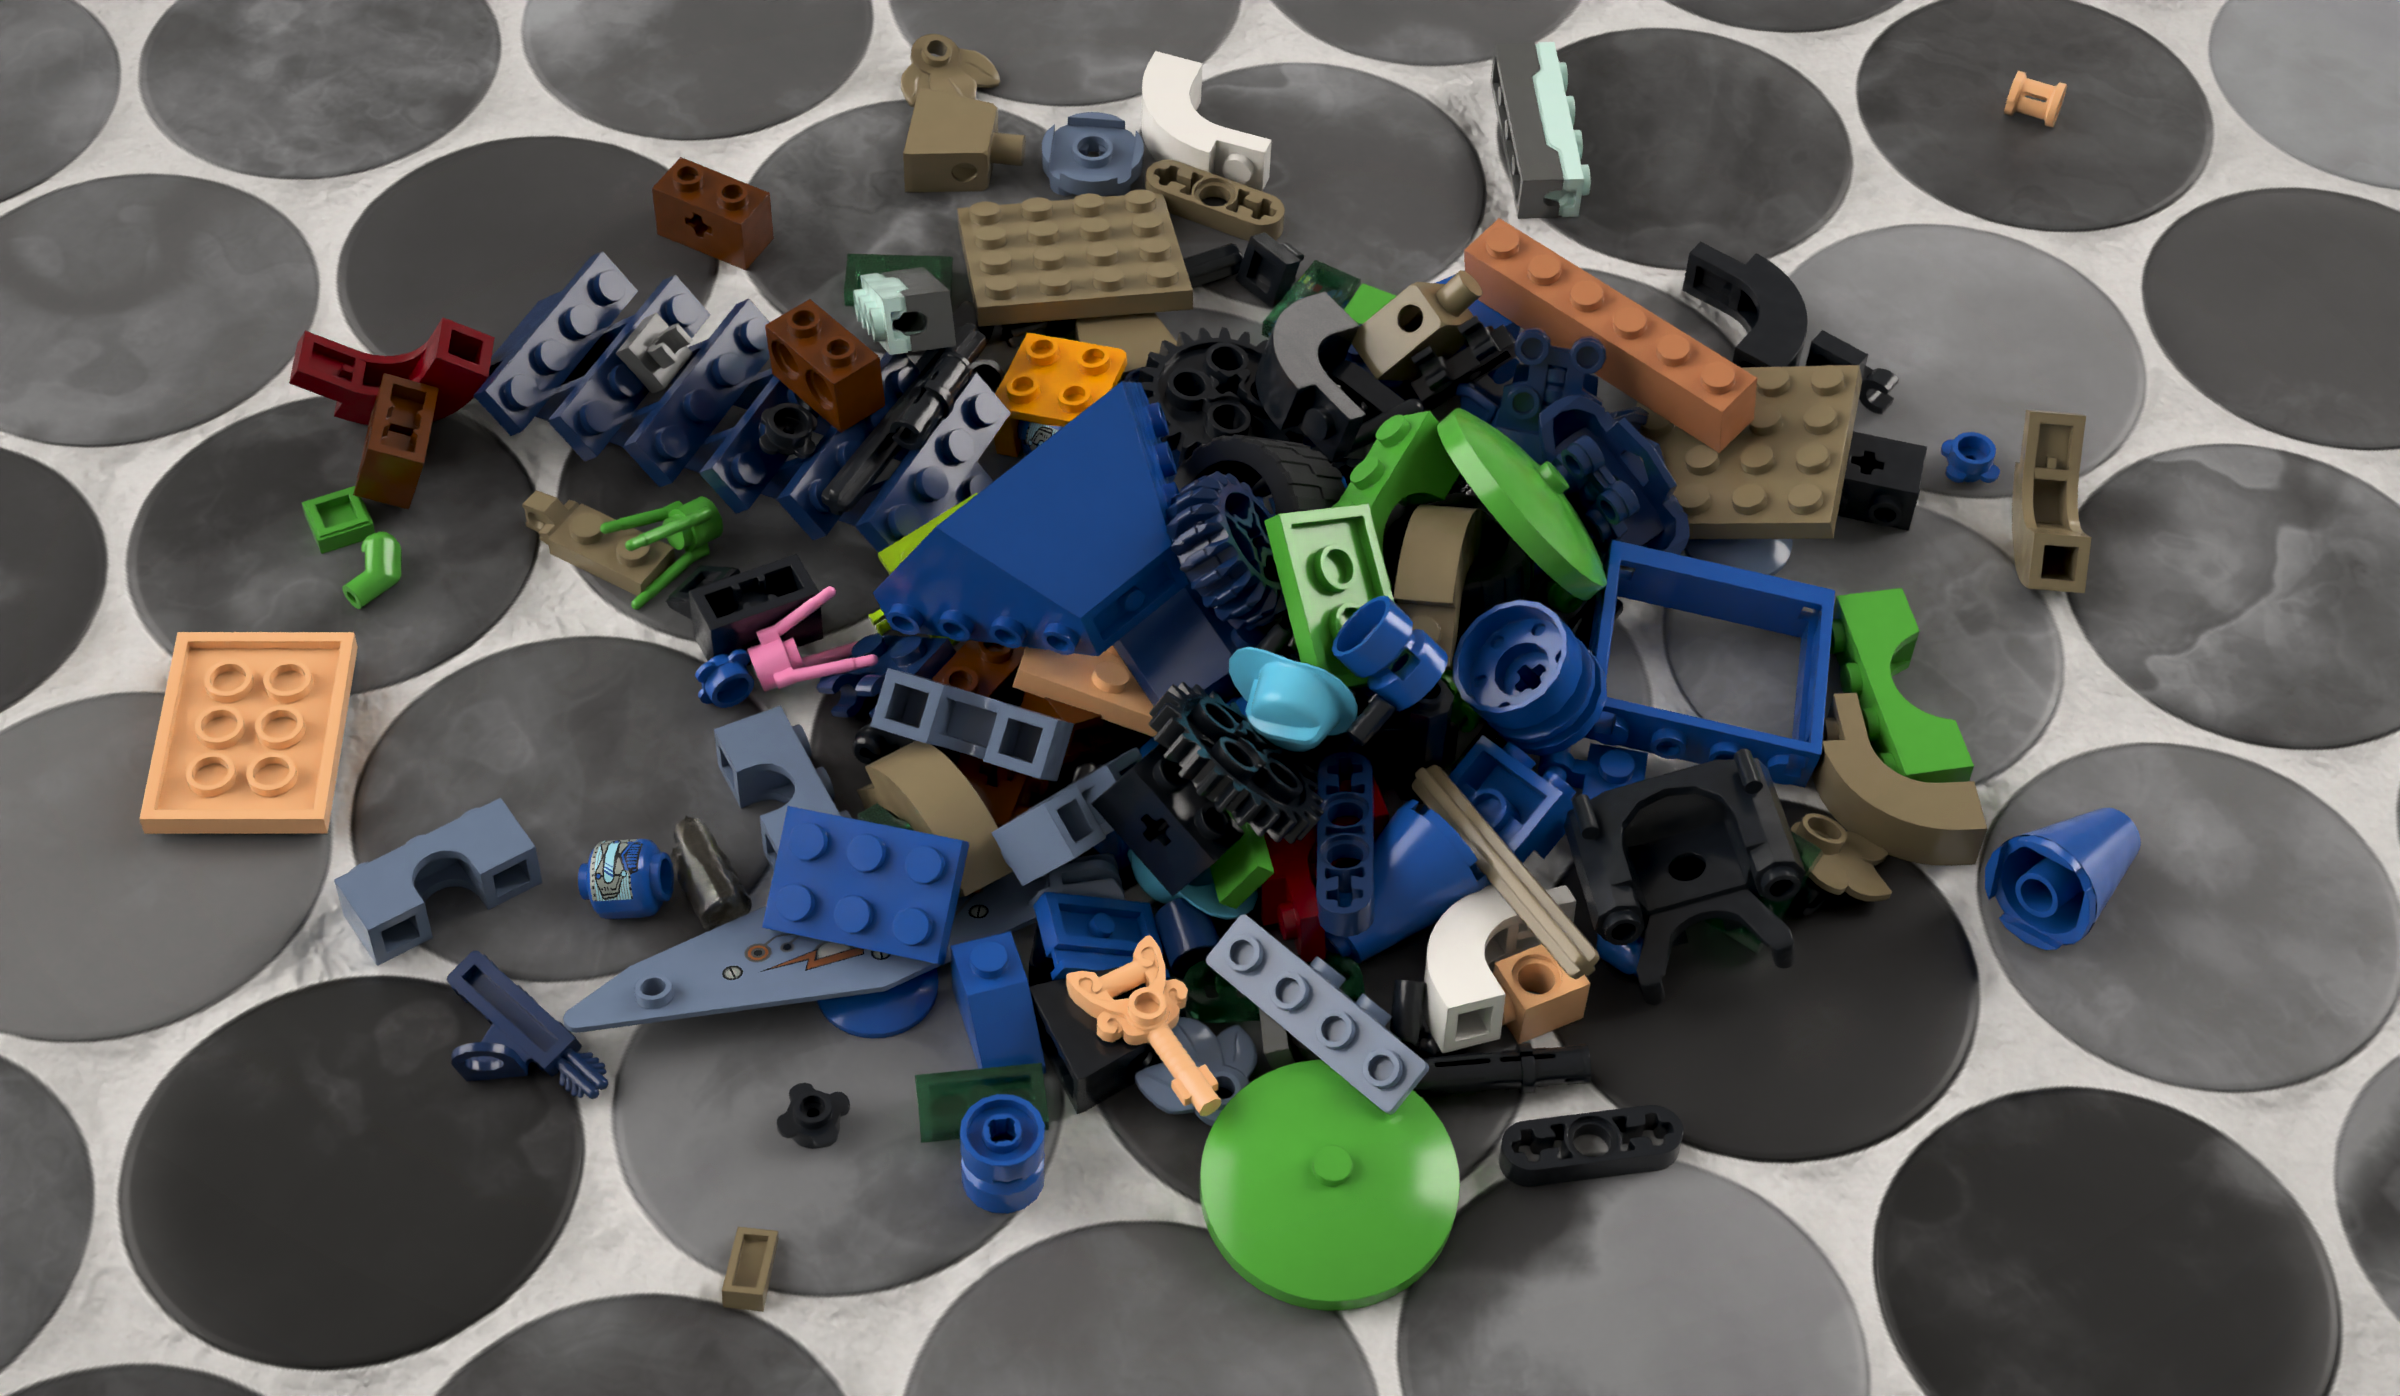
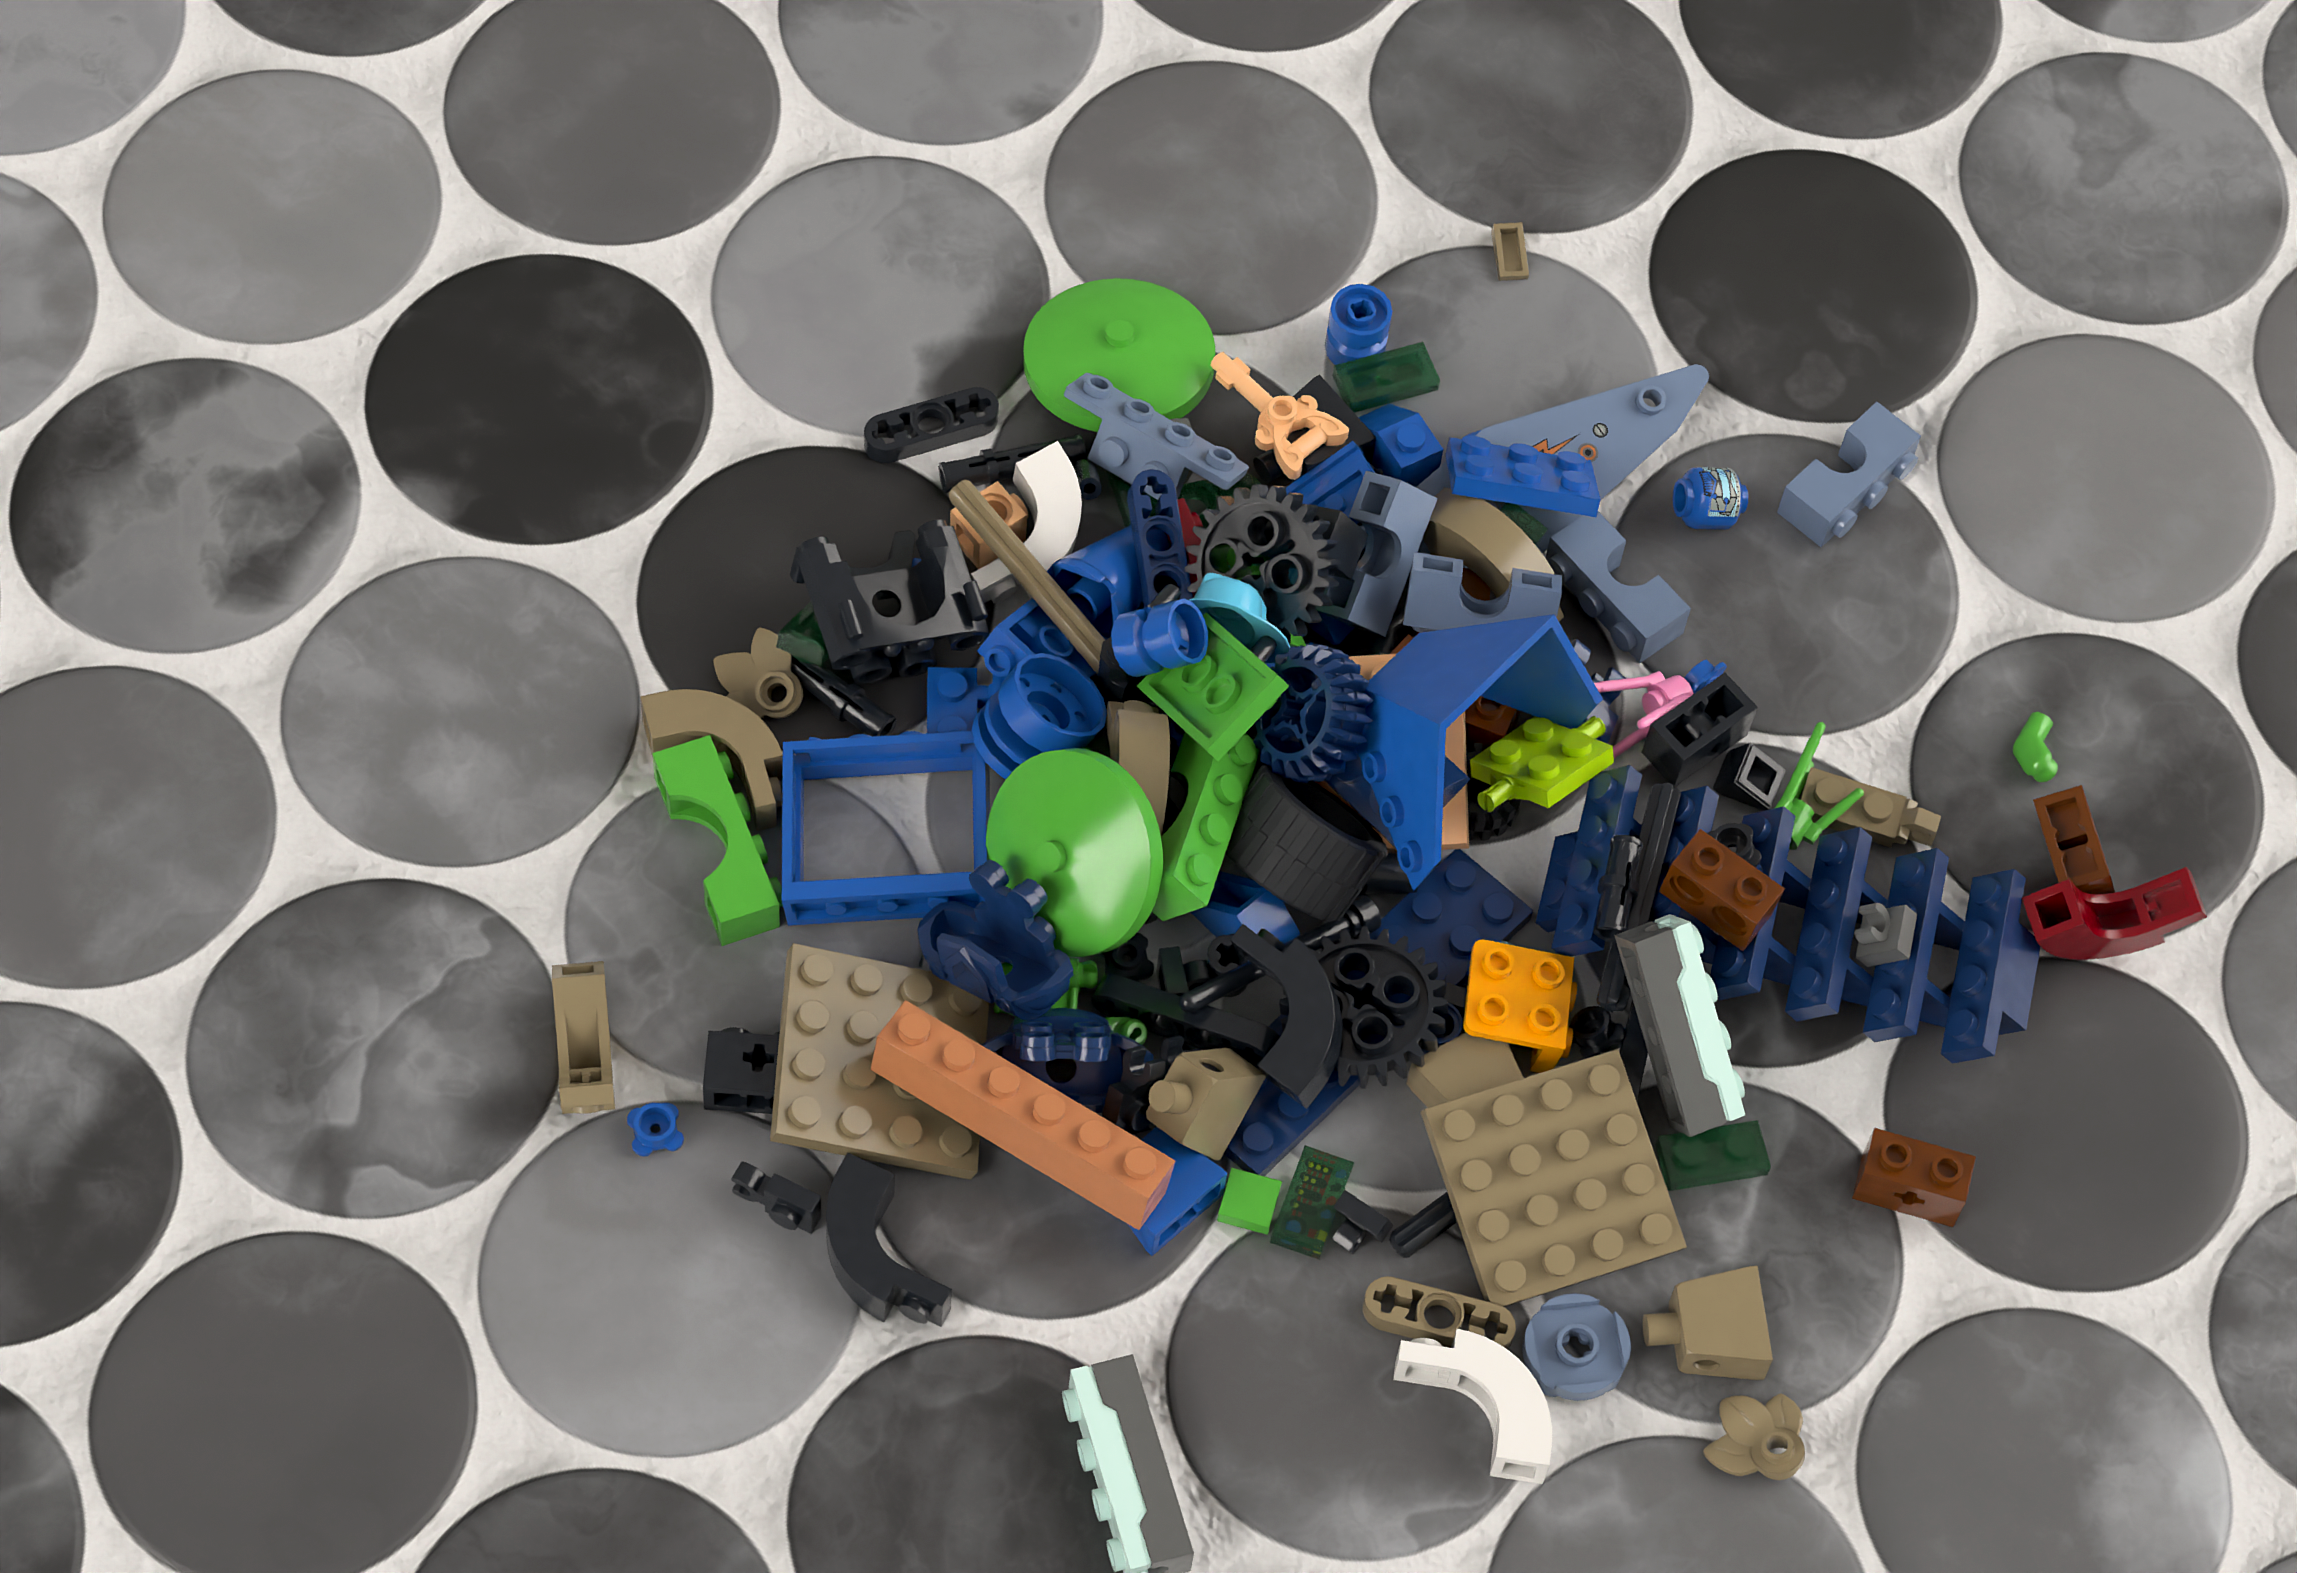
camera: 165 degrees right, 10 degrees up
(250, 733) = (2055, 578): light nougat plate -> none
(338, 519) = (2100, 791): bright green tile -> none
(518, 1033) = (1739, 372): dark blue piece -> none
(707, 875) = (1650, 514): clear smoke hinge -> none
(813, 1131) = (1499, 363): black plate -> none
(1228, 1057) = (1230, 425): sand blue plate -> none
(2061, 876) = (567, 685): blue cone -> none

